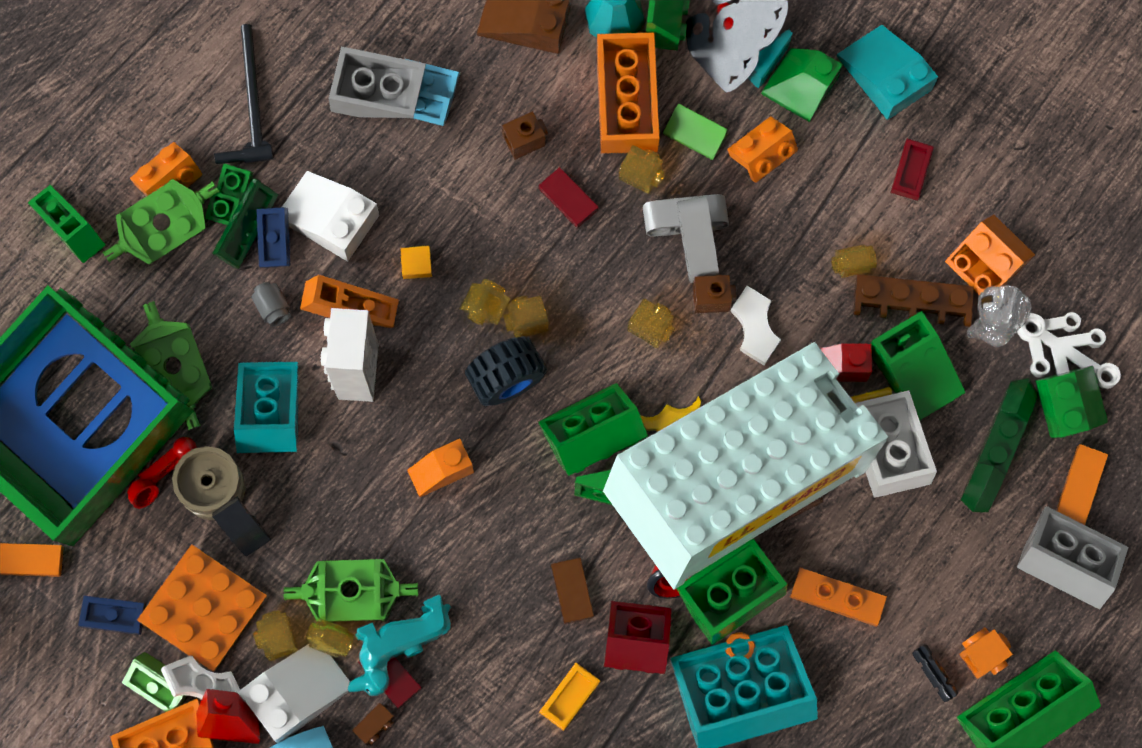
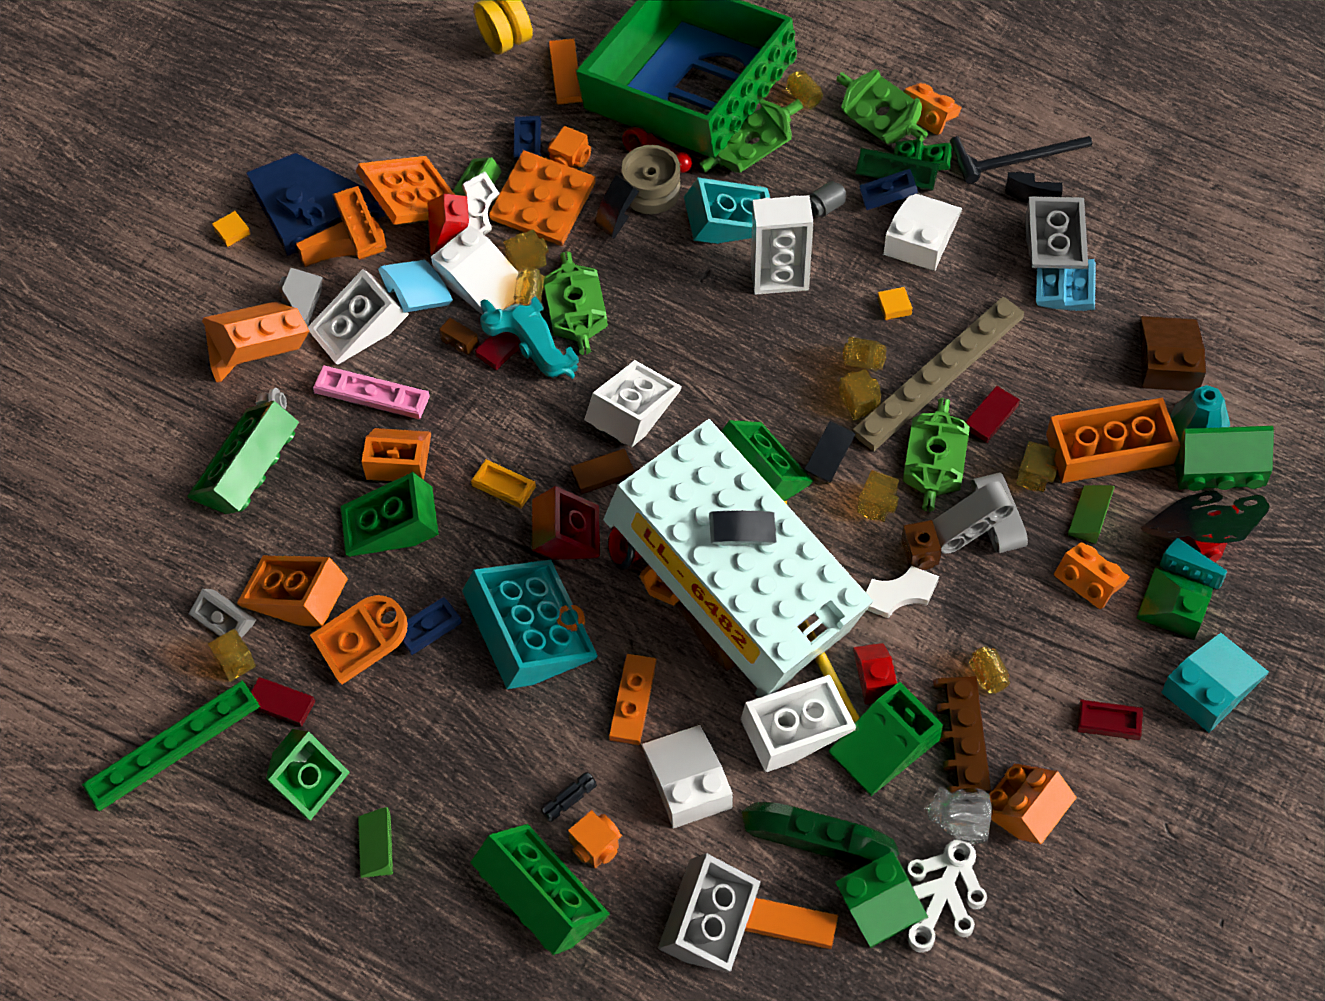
camera: 85 degrees right, 15 degrees down
(67, 223) = (862, 48): green slope -> none
(111, 298) = (804, 88): none -> clear yellow brick
(141, 569) = (570, 148): none -> orange brick
(301, 99) = (1023, 185): none -> black slope
(326, 293) = (840, 255): orange slope -> none
(441, 468) = (701, 351): orange slope -> none
(497, 547) = (631, 403): none -> white slope
(505, 371) = (798, 374): black wheel -> none
(510, 237) = (938, 374): none -> dark tan plate
(524, 135) = (1044, 365): reddish brown brick -> none
(591, 358) = (830, 452): none -> black slope
(622, 274) = (932, 471): none -> bright green plate
(732, 590) = (620, 595): green slope -> none
(753, 443) = (741, 527): none -> black slope
(927, 556) = (688, 776): none -> white slope

